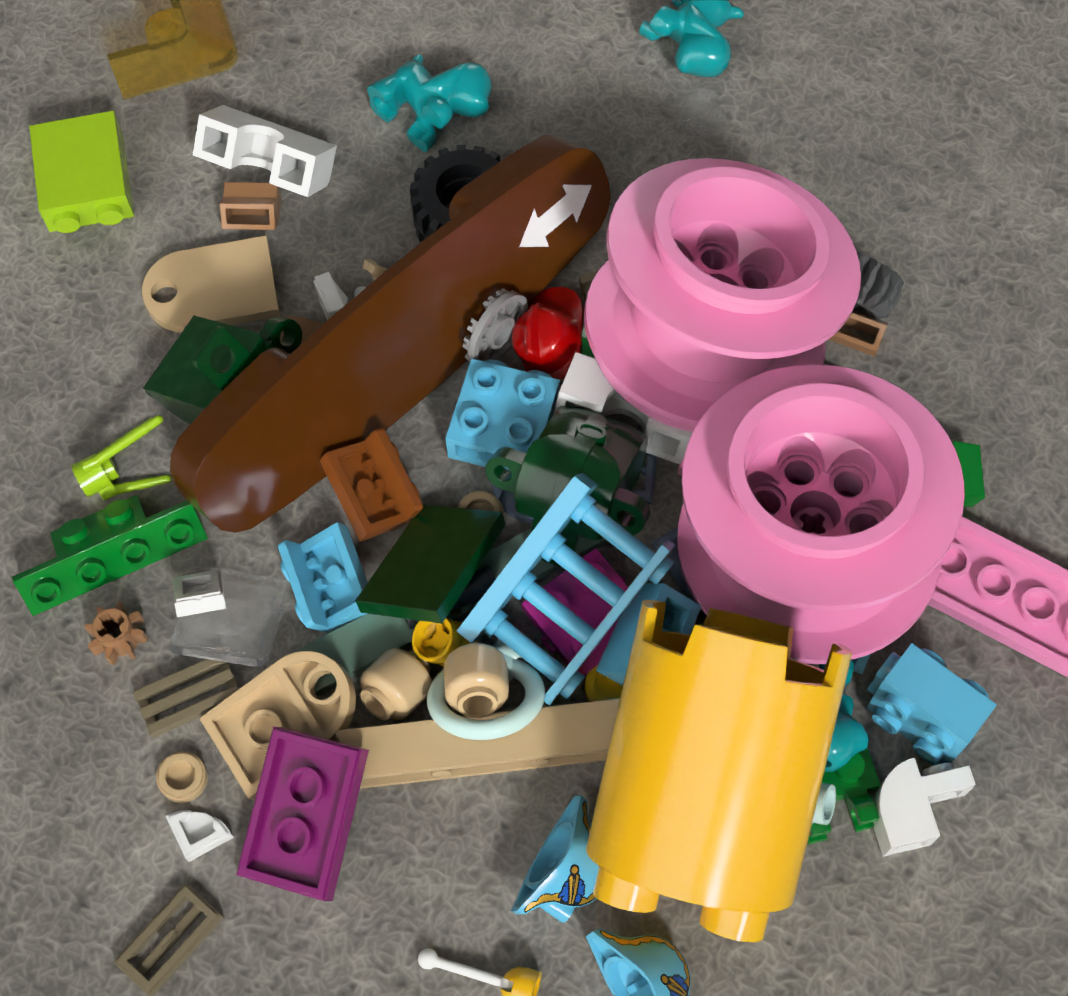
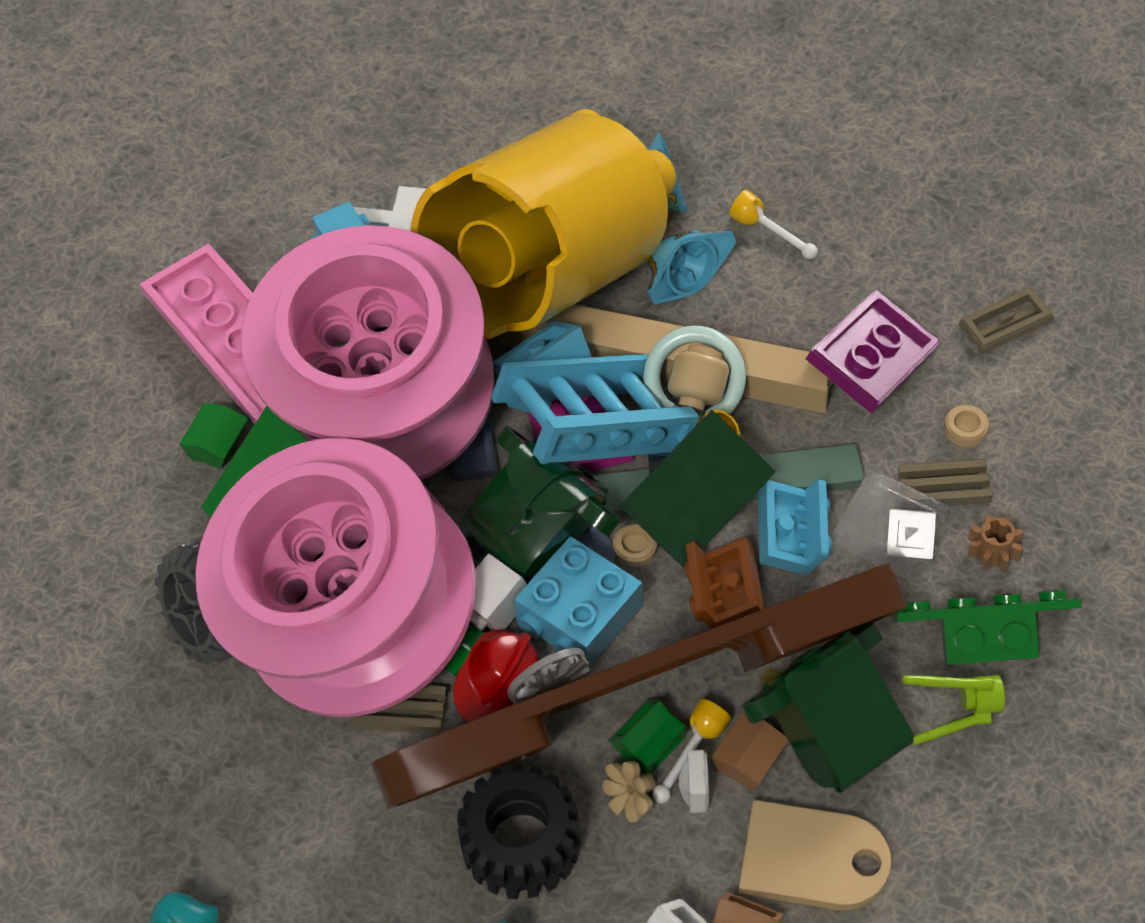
camera: 155 degrees left, 10 degrees down
(197, 832) = (964, 383): white tile -> none
(279, 698) = (862, 440): tan tile -> none
(395, 684) = (765, 423): tan head -> none

